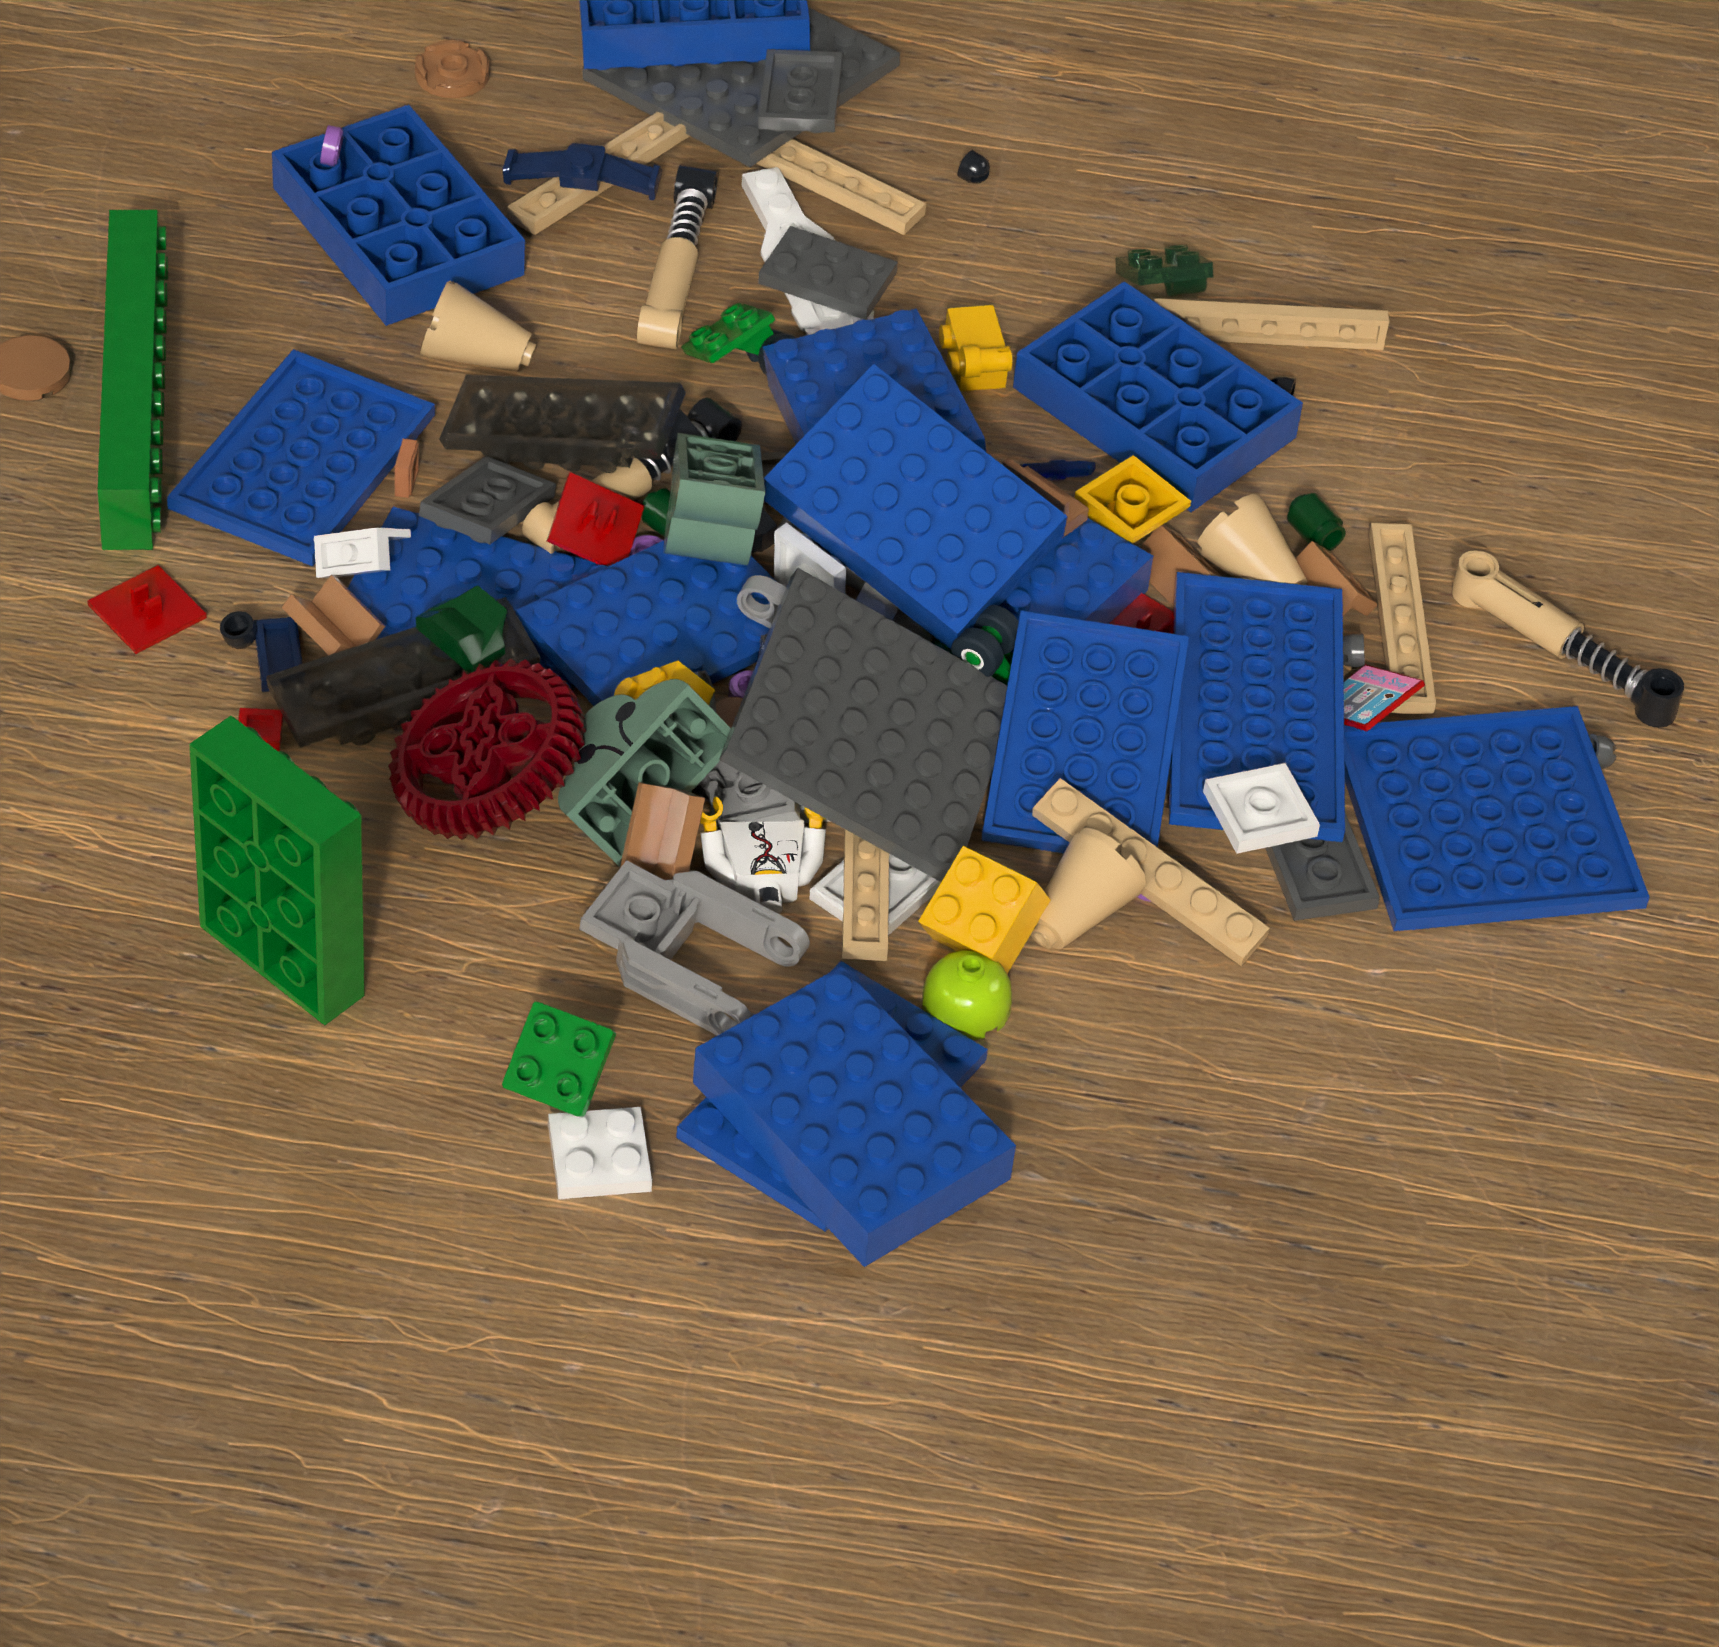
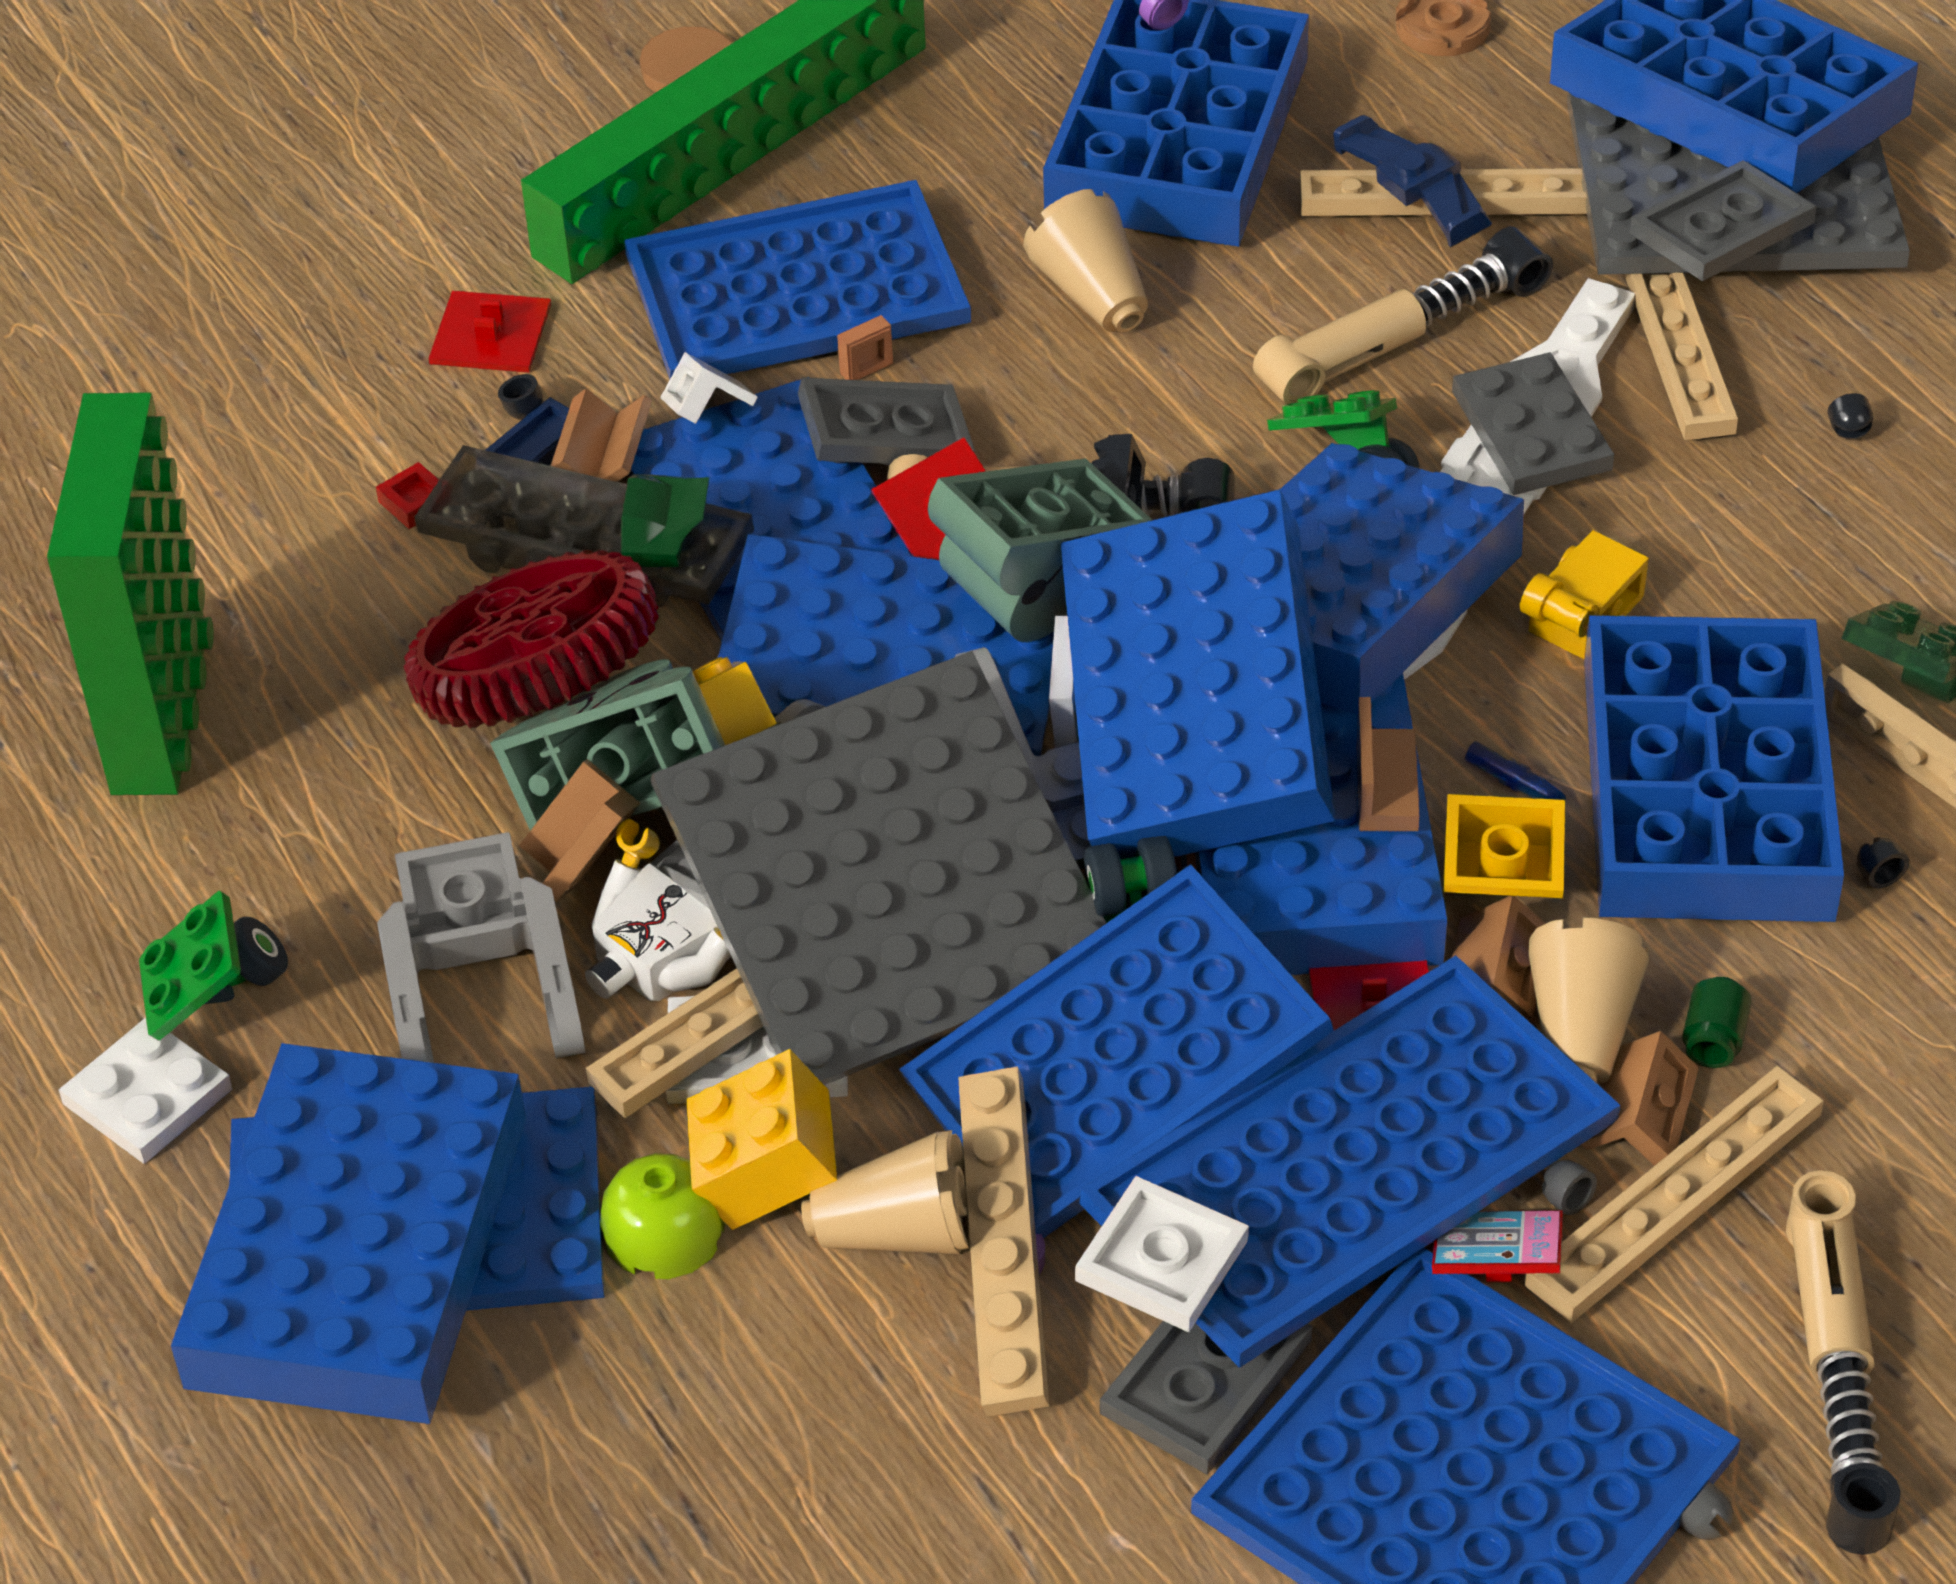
camera: 55 degrees right, 0 degrees up
(563, 420) = (1034, 387): clear smoke plate -> none

